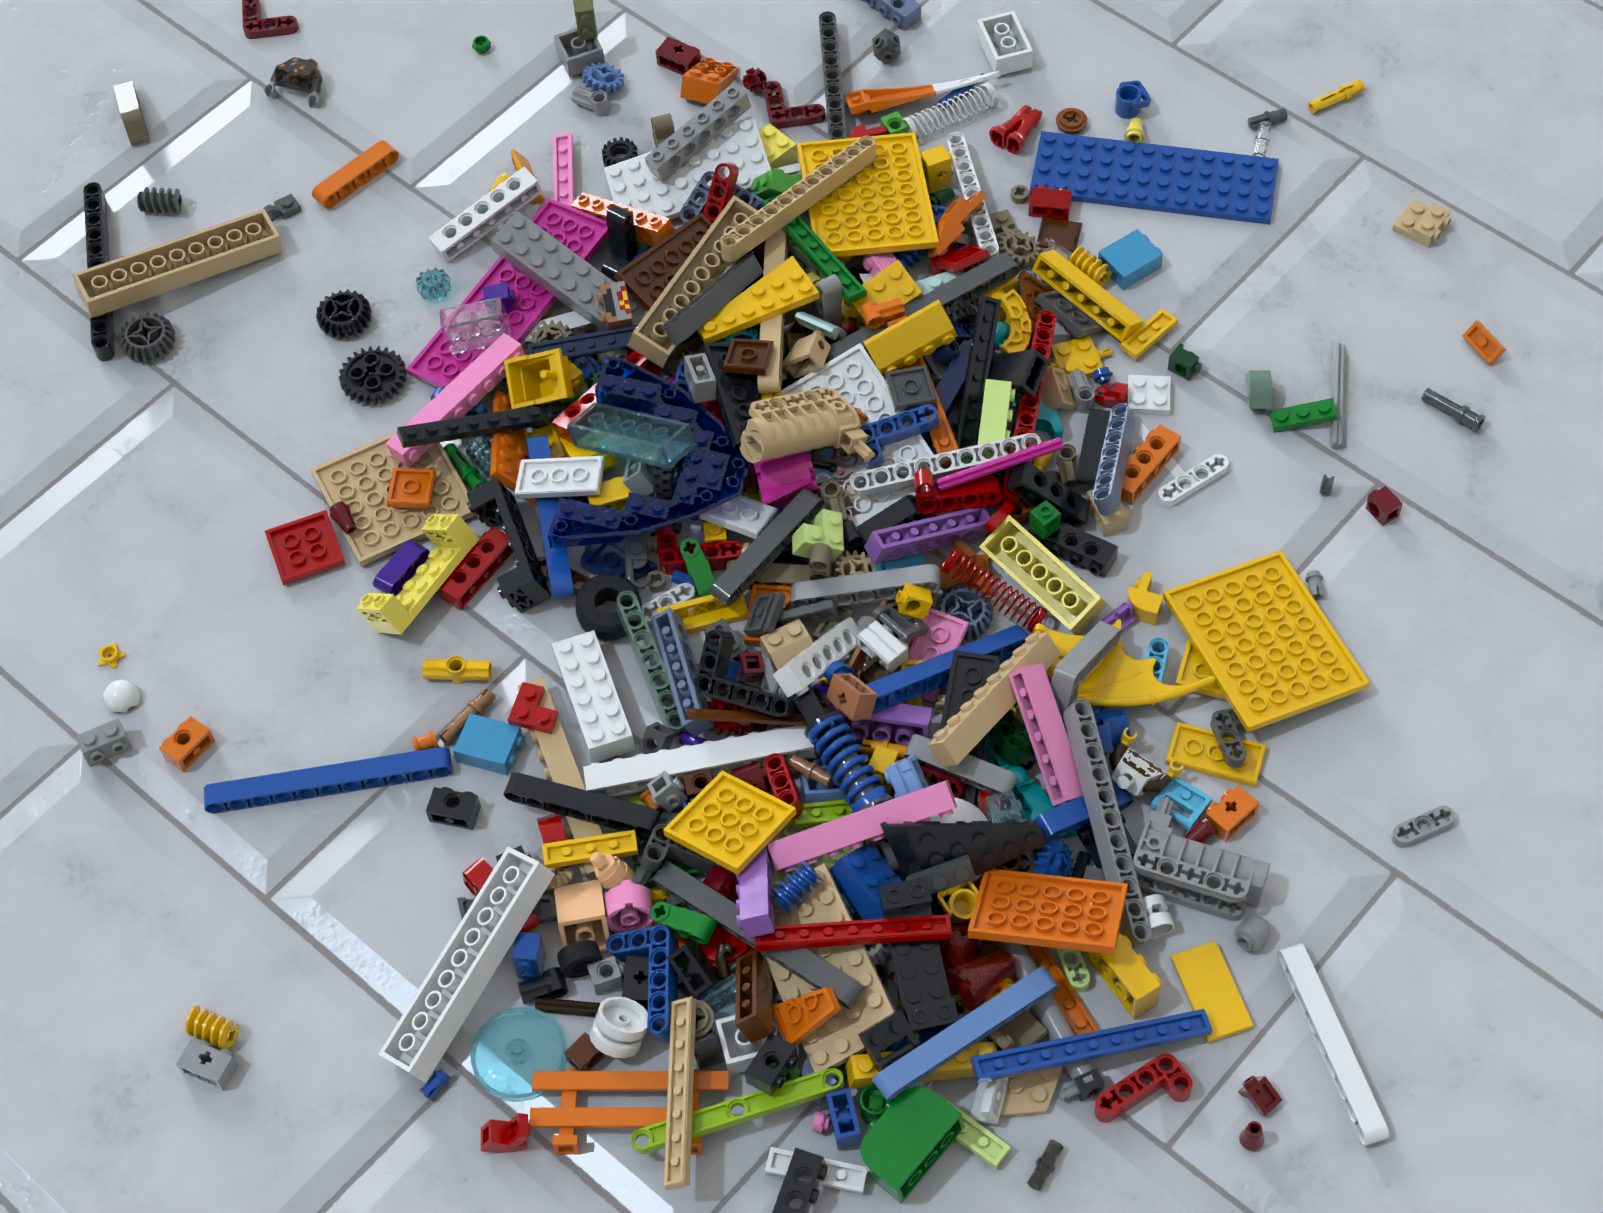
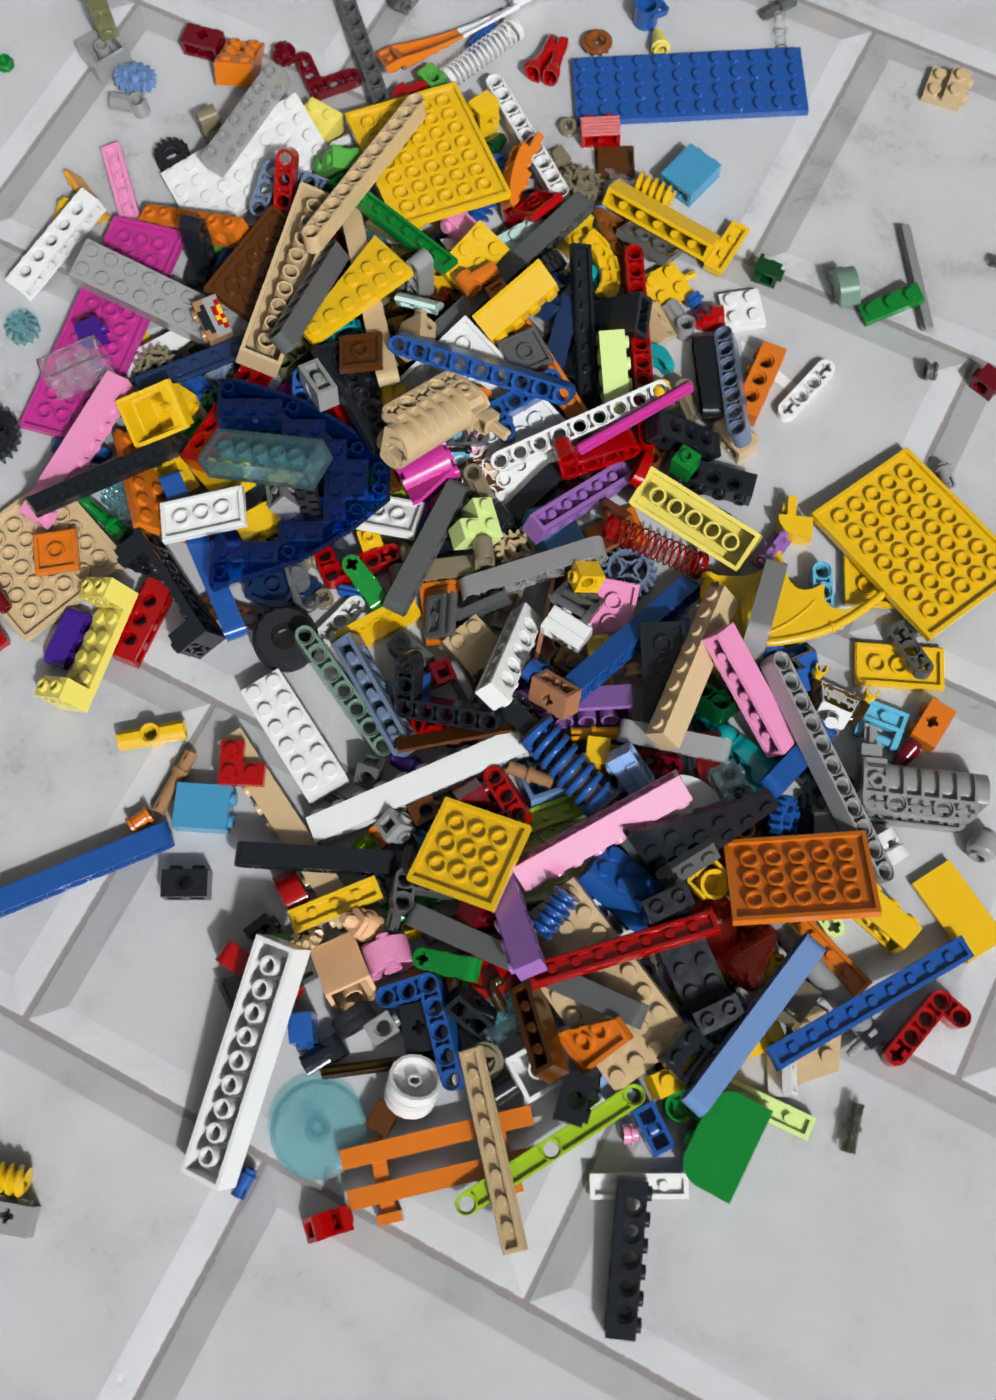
camera: 15 degrees left, 15 degrees up
(870, 391) = (471, 368): none -> blue beam

